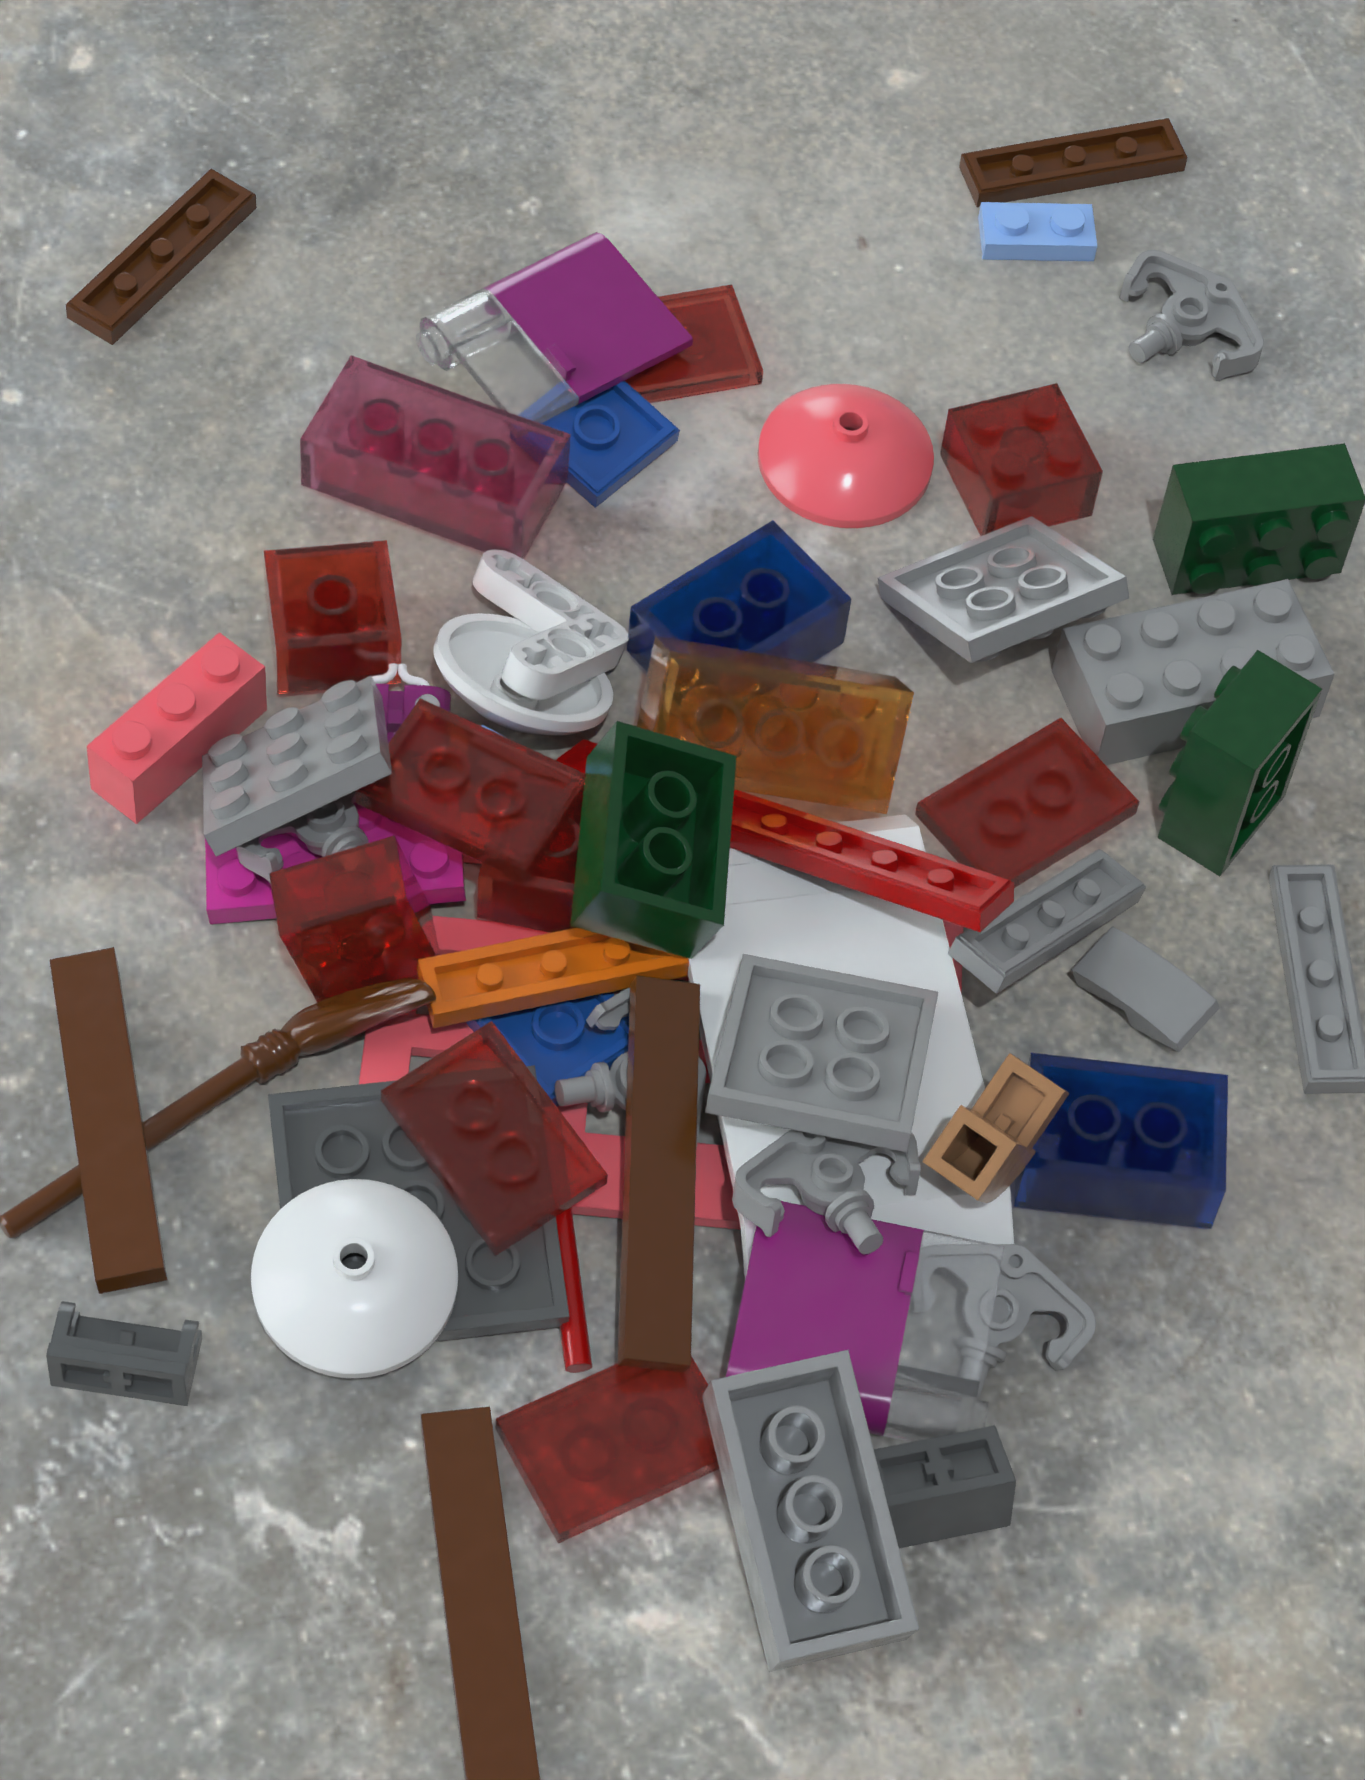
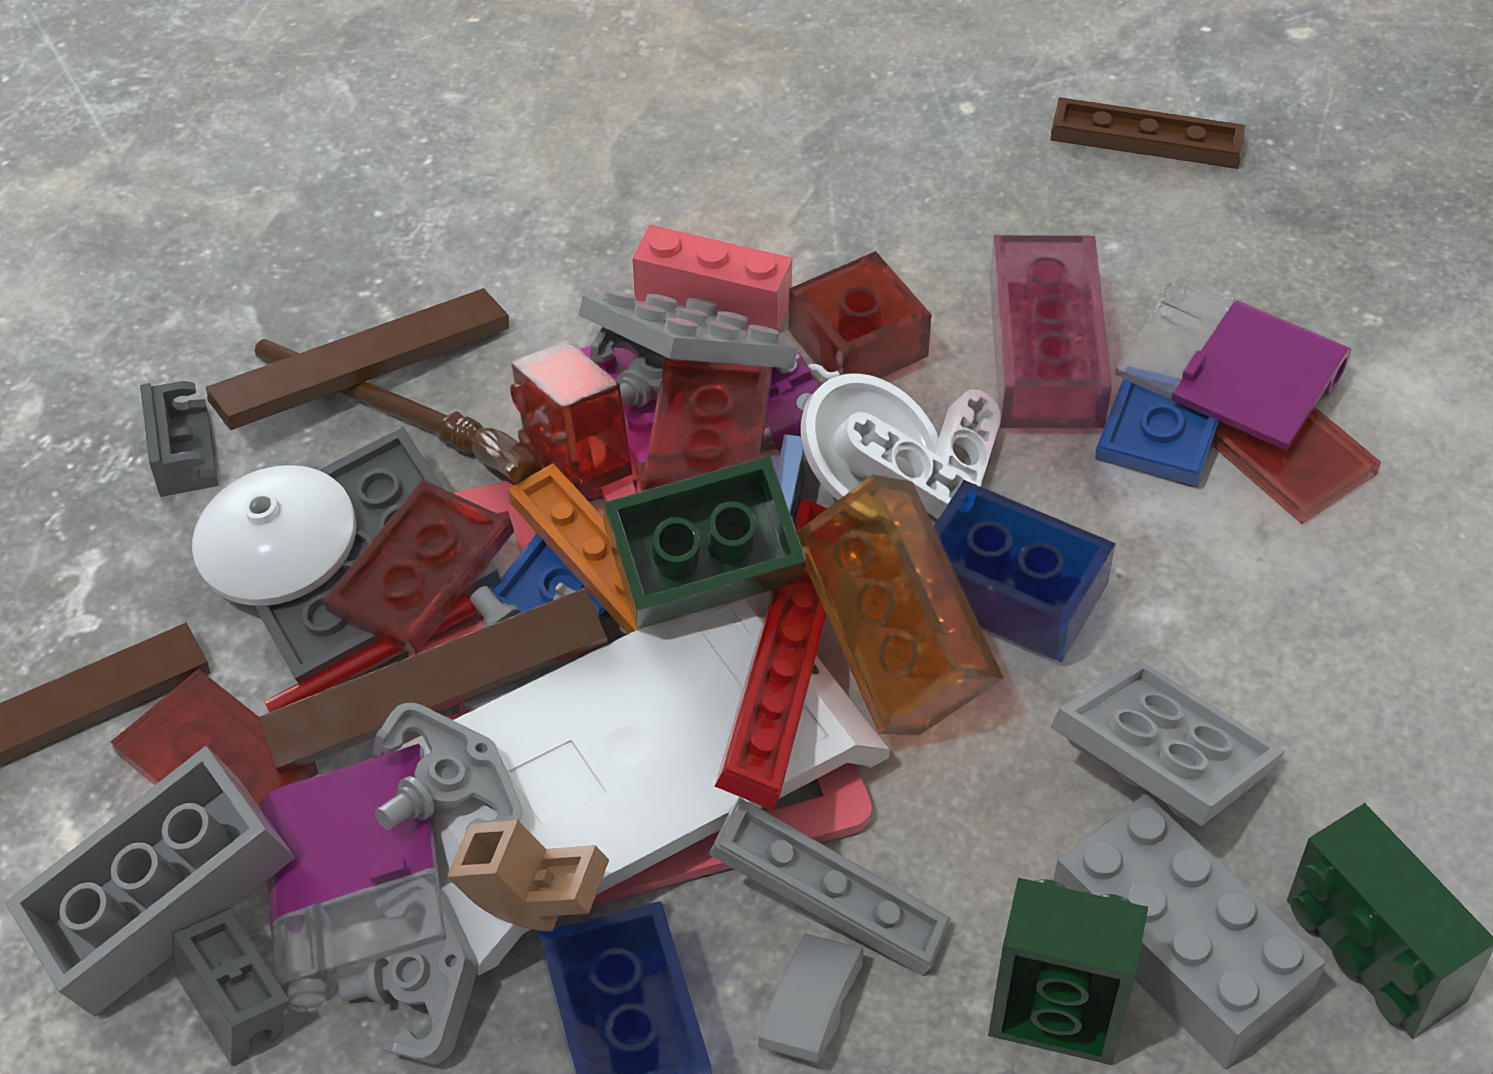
camera: 75 degrees right, 5 degrees down
(823, 1053) = (563, 731): light grey plate -> none
(845, 456) = (1263, 622): coral dish -> none
(1021, 460) = (1335, 719): clear red brick -> none
(1028, 805) = (961, 848): clear red tile -> none

